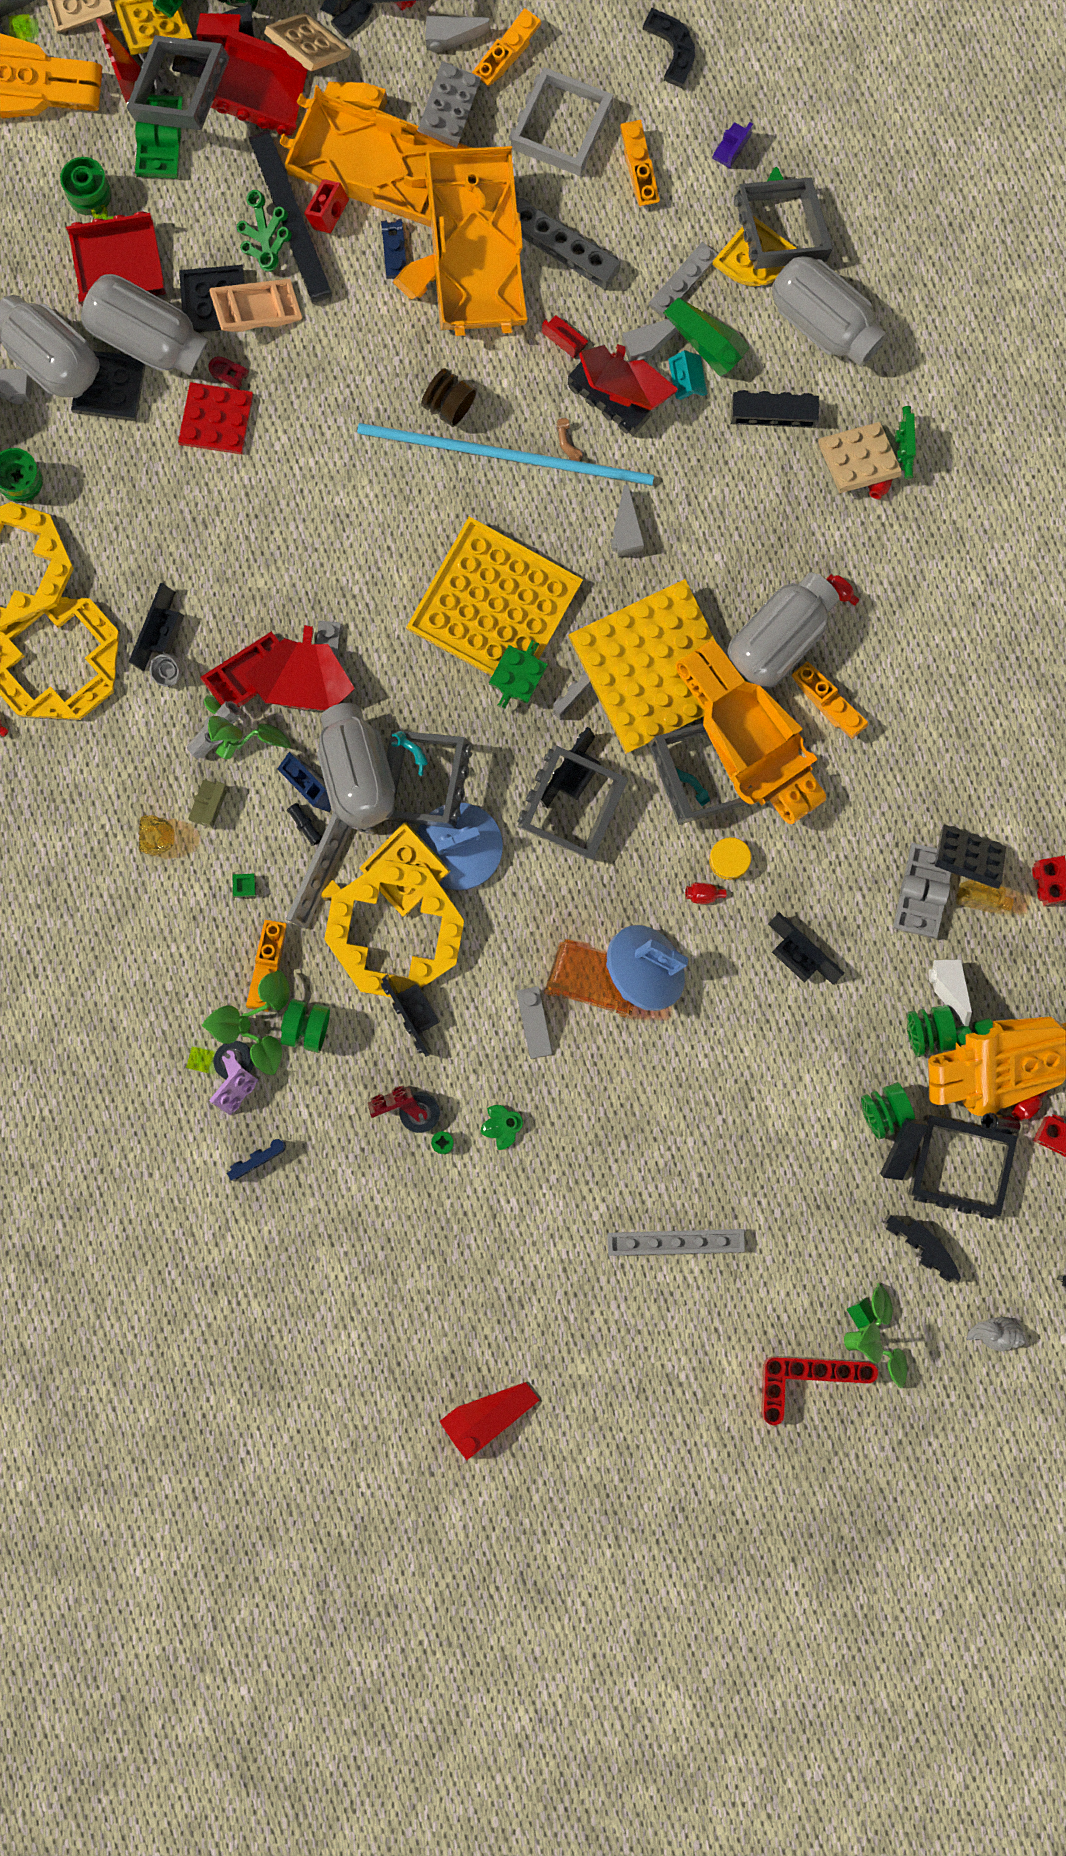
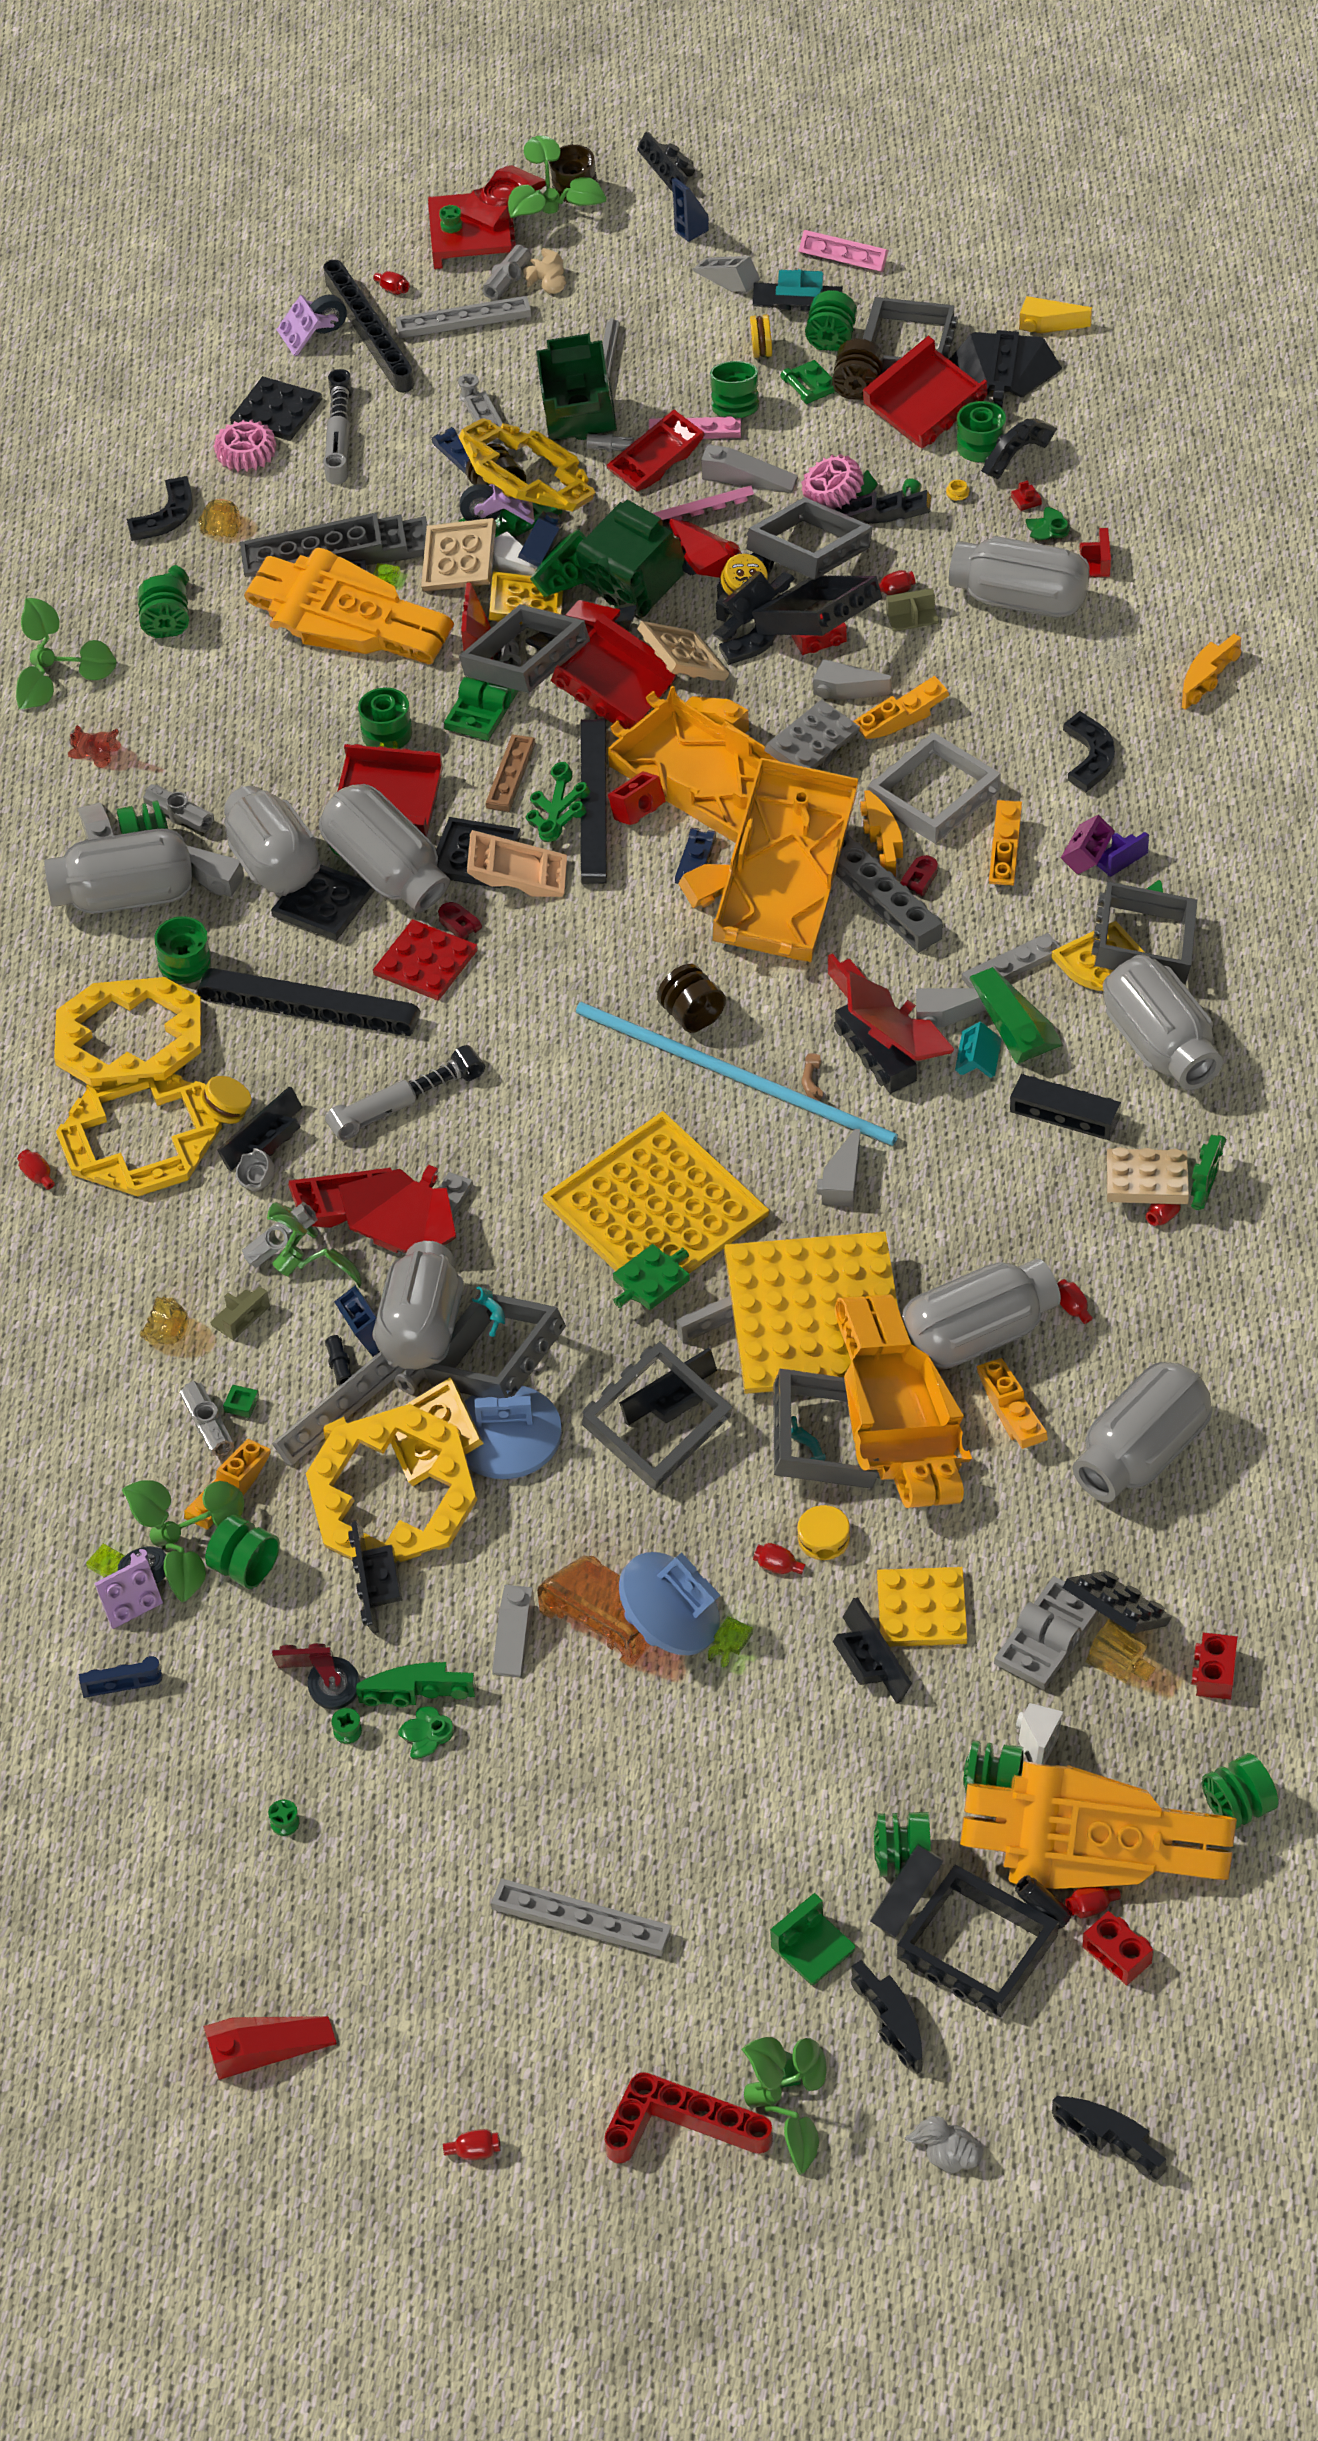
camera: 25 degrees right, 30 degrees down
(114, 610) = (225, 1099): none -> yellow head
(139, 490) = (309, 1001): none -> black beam
(209, 206) = (510, 773): none -> medium nougat tile
(219, 596) = (348, 1120): none -> piece
(234, 920) = (206, 1419): none -> light grey piece
(426, 1235) = (288, 1812): none -> green wheel
(471, 1094) = (404, 1683): none -> green slope
(536, 176) = (883, 830): none -> light orange slope
(581, 207) = (922, 868): none -> dark red plate
(671, 1449) = (474, 2145): none -> red plant
(695, 972) = (729, 1638): none -> clear neon green plate
(706, 145) = (1087, 844): none -> magenta brick
(823, 897) = (922, 1606): none -> yellow plate
(848, 1207) = (810, 1941): none -> green bracket
(941, 700) = (1143, 1430): none -> light grey piece

